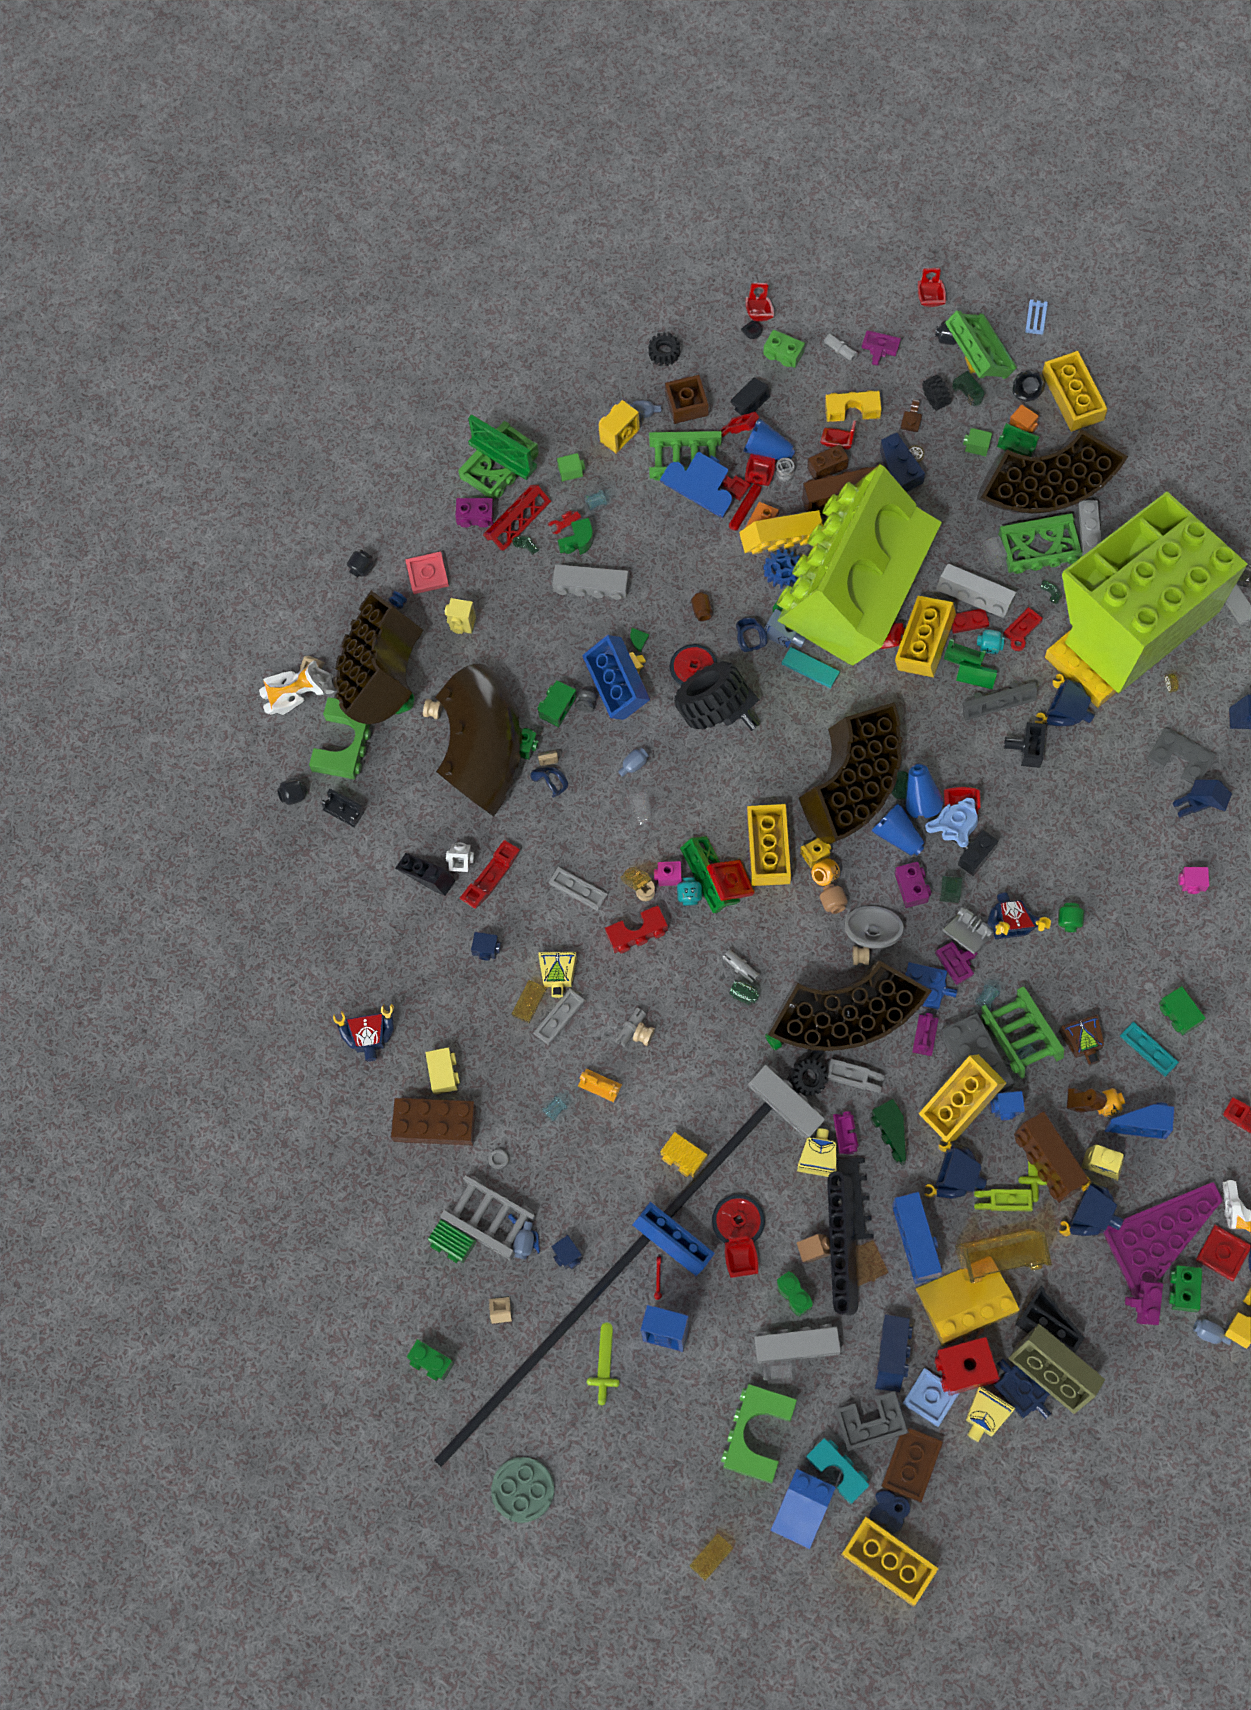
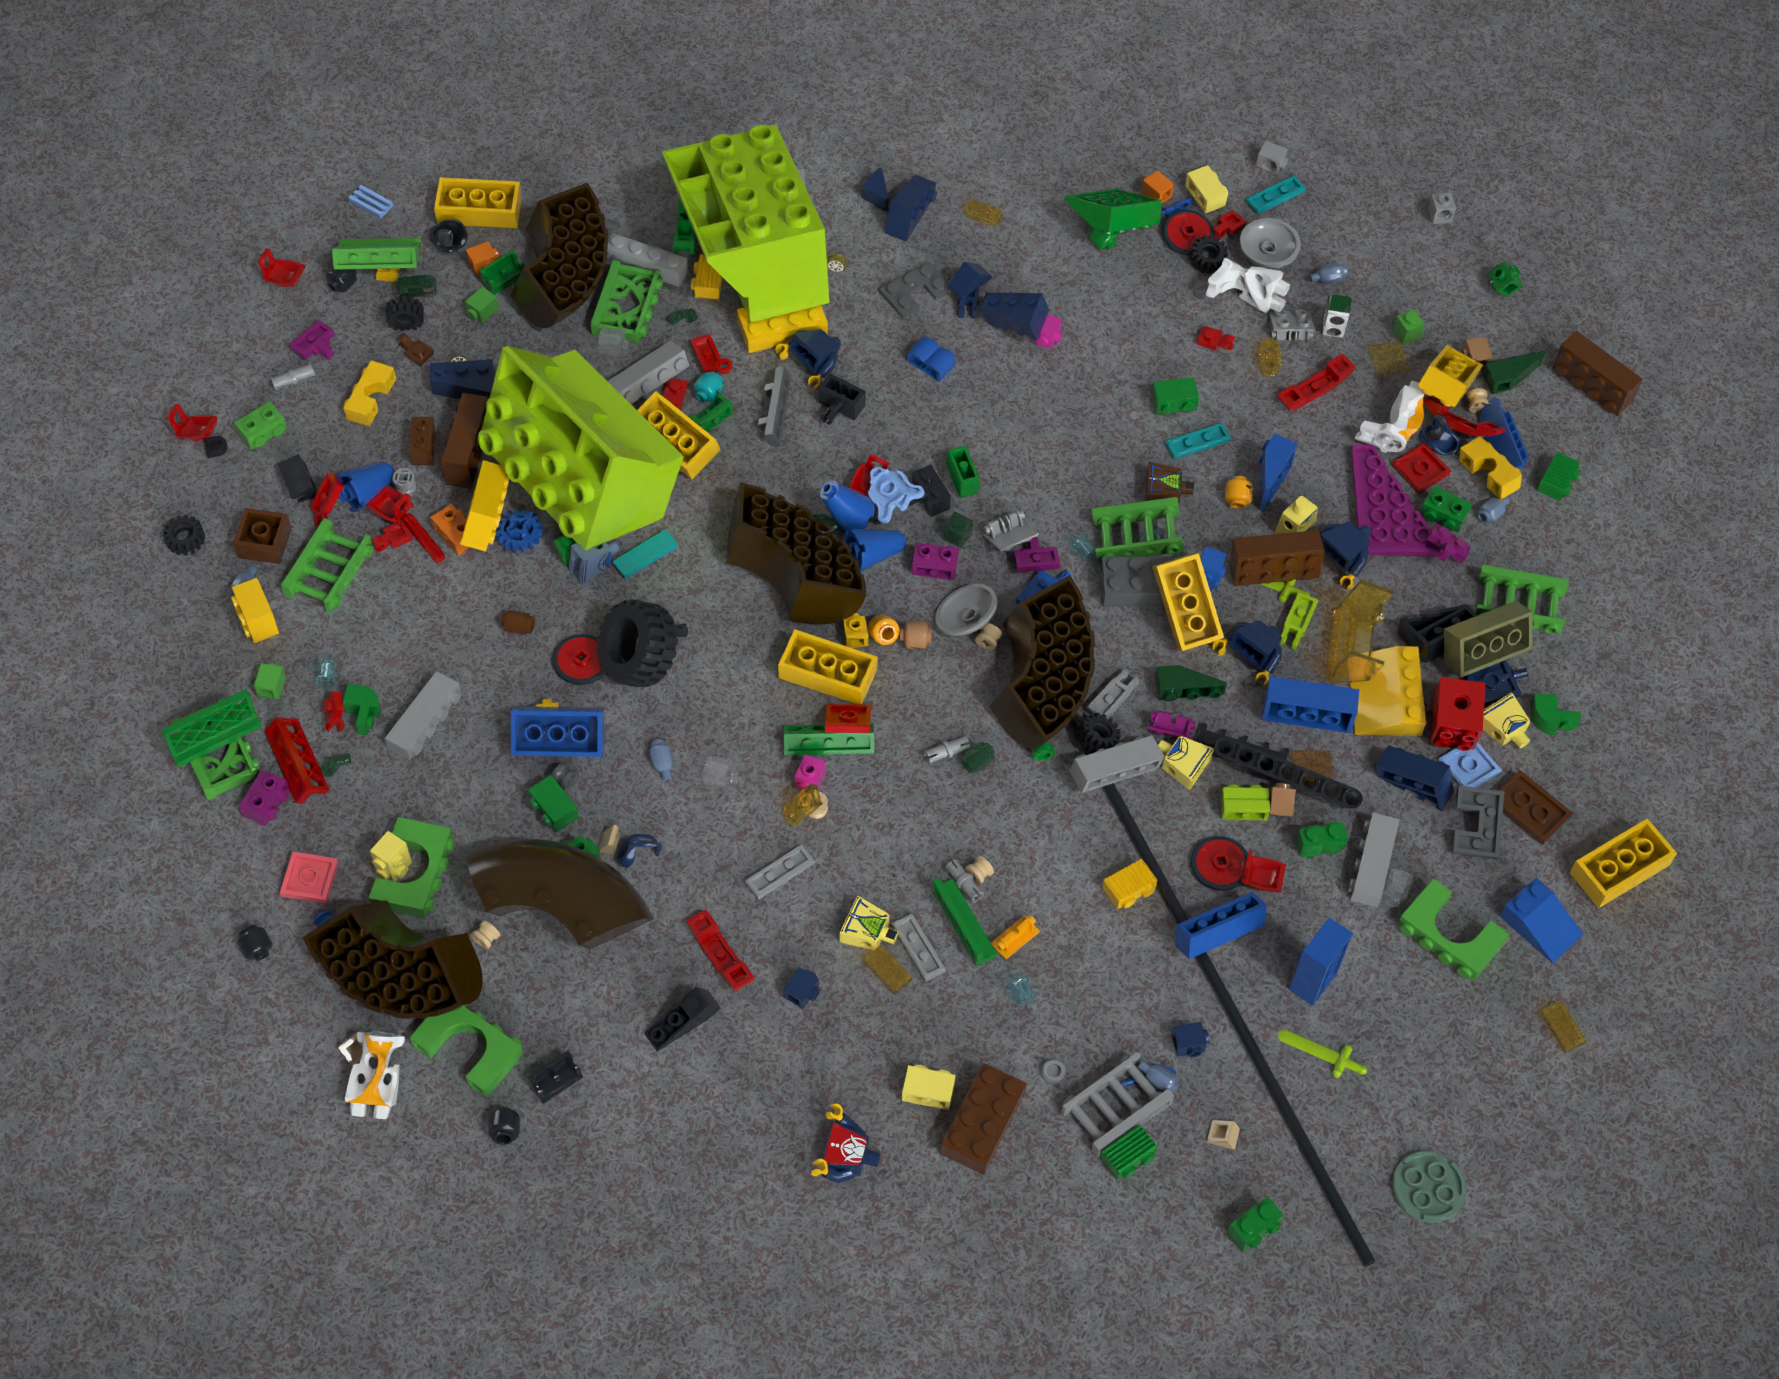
camera: 75 degrees left, 10 degrees down
(443, 650) = (417, 896): none -> bright green arch
(460, 857) = (684, 972): white brick -> none
(593, 1043) = (963, 921): none -> green fence
(623, 938) = (859, 848): red arch -> none
(638, 639) = (518, 698): green tile -> none
(658, 1295) = (1268, 971): red hinge -> none
(689, 892) = (841, 763): teal head -> none
(700, 483) = (375, 560): blue brick -> none
(747, 624) = (564, 588): dark blue piece -> none
(800, 1218) = (1245, 803): none -> lime brick
(826, 1455) = (1530, 865): teal arch -> none
(833, 437) = (400, 420): red piece -> none
(886, 1511) = (1569, 849): dark blue plate -> none
(925, 1034) = (1101, 618): magenta hinge -> none
(976, 675) = (738, 413): green tile -> none
(1008, 869) = (963, 471): none -> green brick
(1010, 1448) = (1548, 717): none -> green brick
(1013, 919) = (1018, 489): torso -> none
(1071, 917) = (1037, 443): green head -> none
(1085, 1101) = (1232, 507): reddish brown leg -> none
(1113, 798) = (931, 358): none -> blue brick
(1144, 1393) = (1529, 582): none -> bright green fence
(1194, 845) = (1016, 312): none -> dark blue wedge

